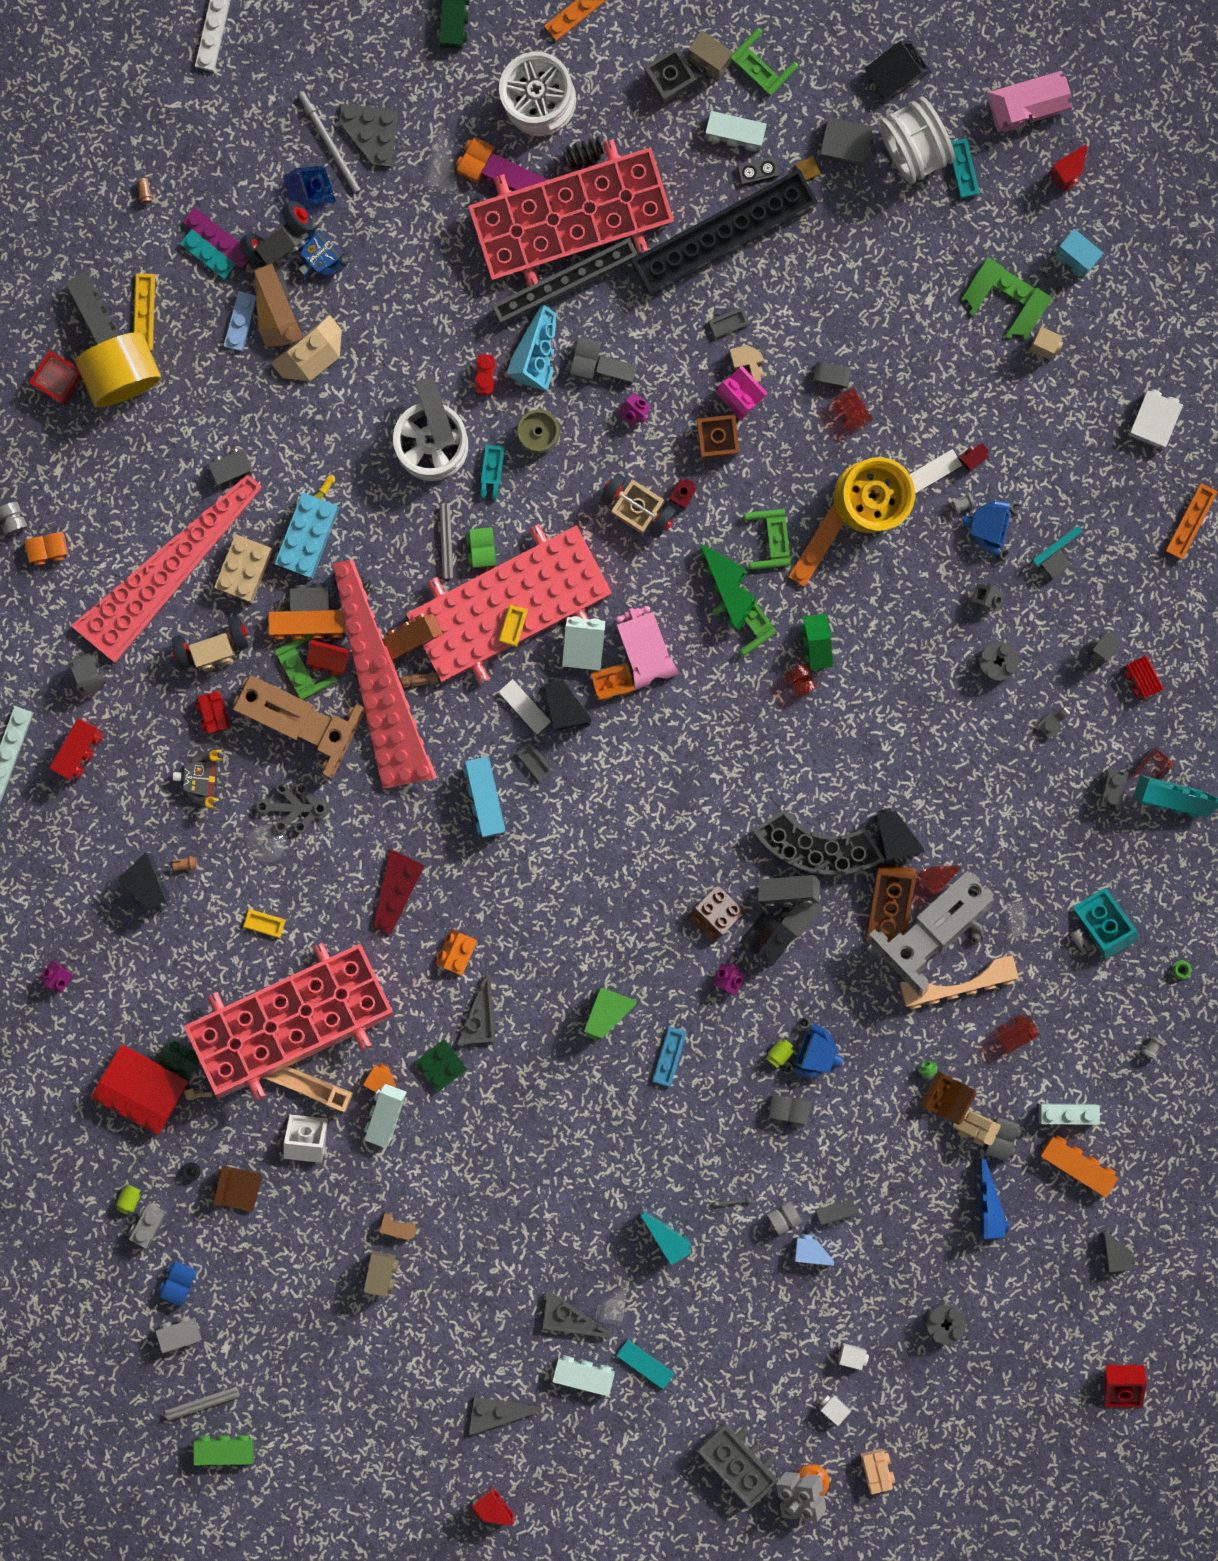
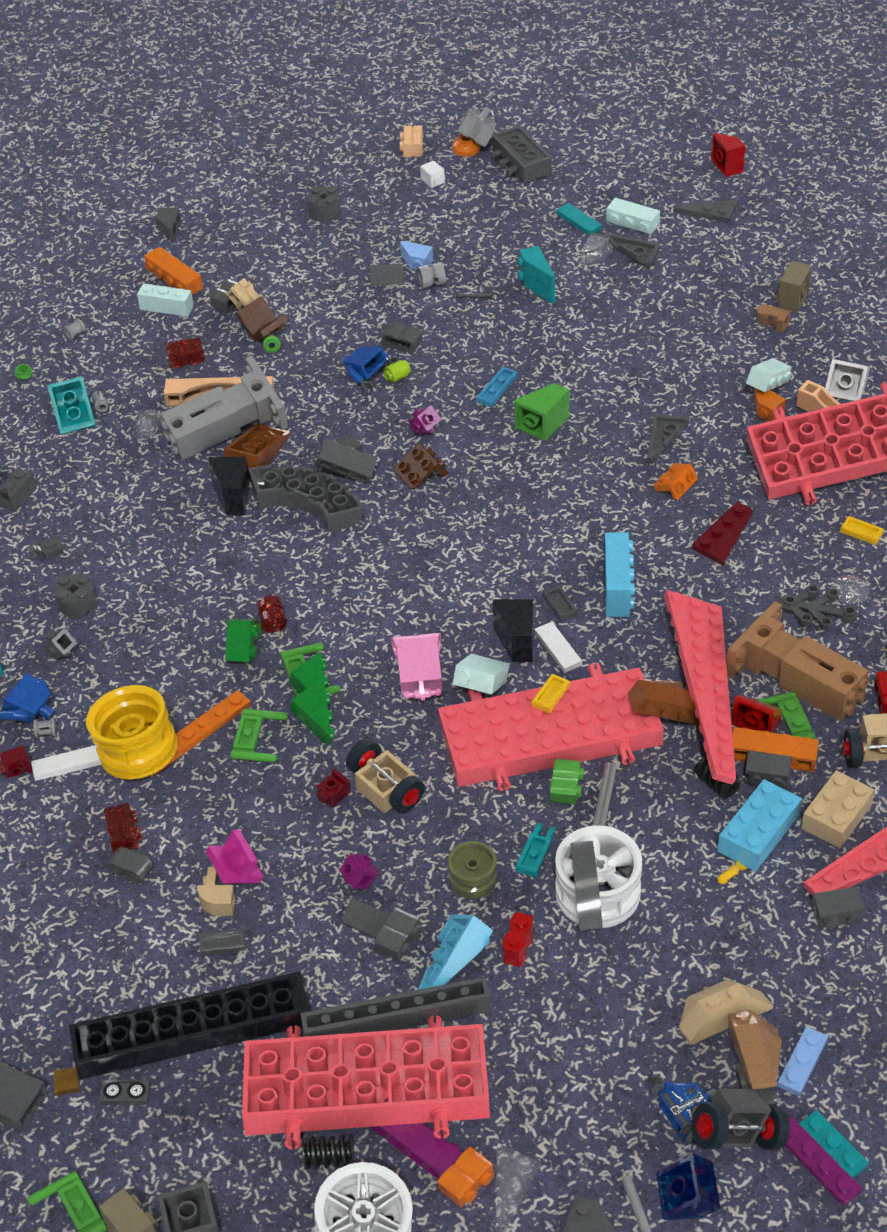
camera: 165 degrees left, 40 degrees down
(440, 1065) = (709, 411): dark green plate -> none
(613, 681) = (460, 644): orange bracket -> none
(717, 437) = (276, 827): dark orange brick -> none
(735, 131) = (133, 1138): light aqua brick -> none
(767, 939) = (378, 432): black slope -> none
(853, 1356) = (406, 198): white brick -> none
(936, 877) = (198, 458): clear red slope -> none
(991, 1213) = (259, 254): blue wedge -> none
(1124, 1386) = (198, 157): red slope -> none

